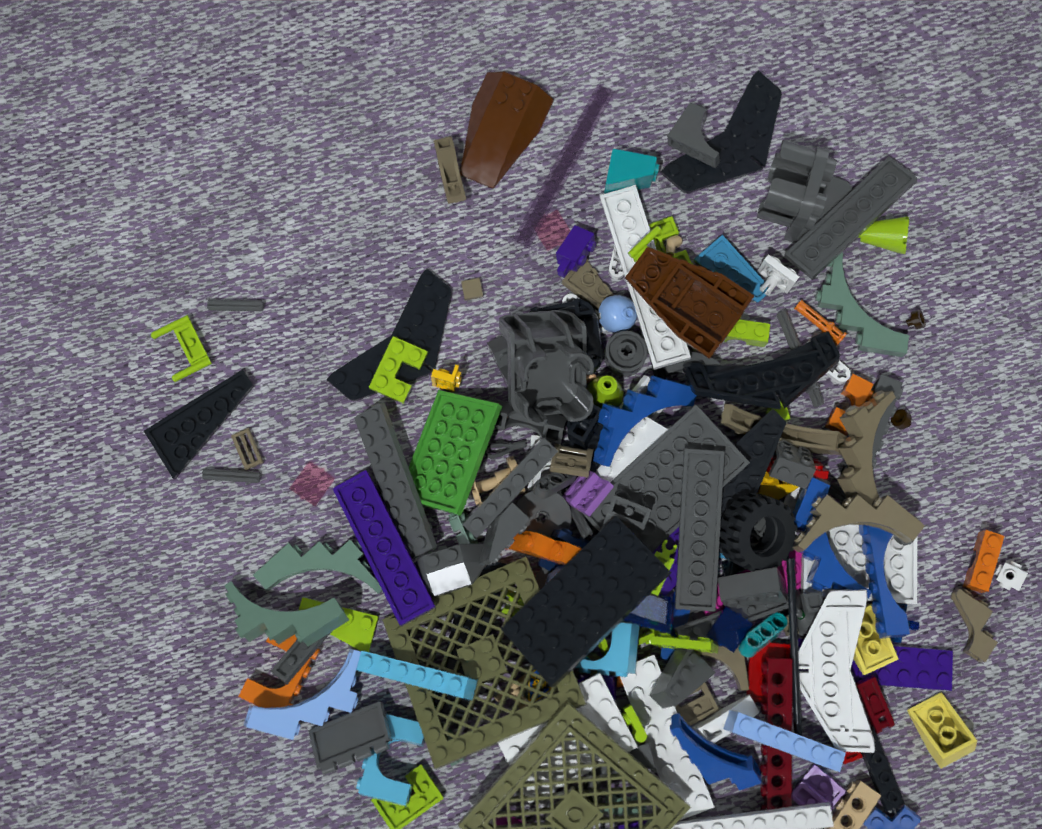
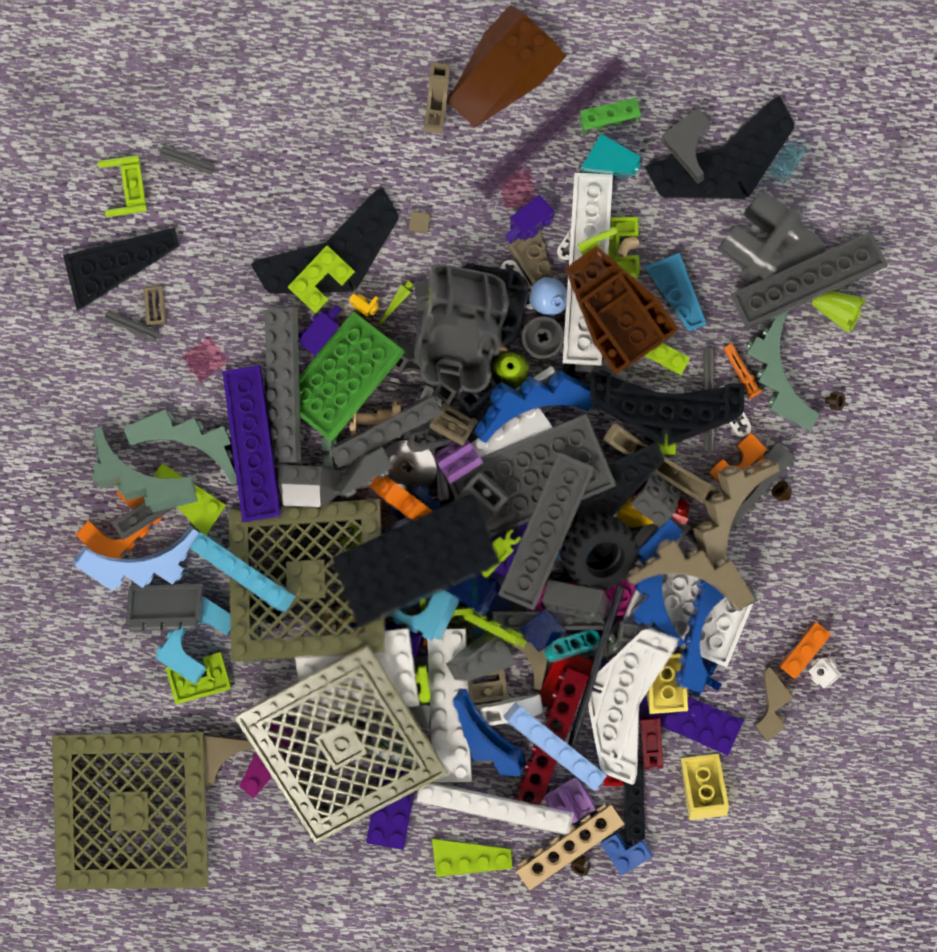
camera: 20 degrees right, 10 degrees up
(413, 418) = (320, 331): none -> dark purple hinge
(478, 361) = (402, 293): none -> lime piece
(612, 130) = (609, 114): none -> bright green window
(776, 275) = (715, 312): white plate -> none
(788, 122) = (787, 161): none -> clear light blue bracket

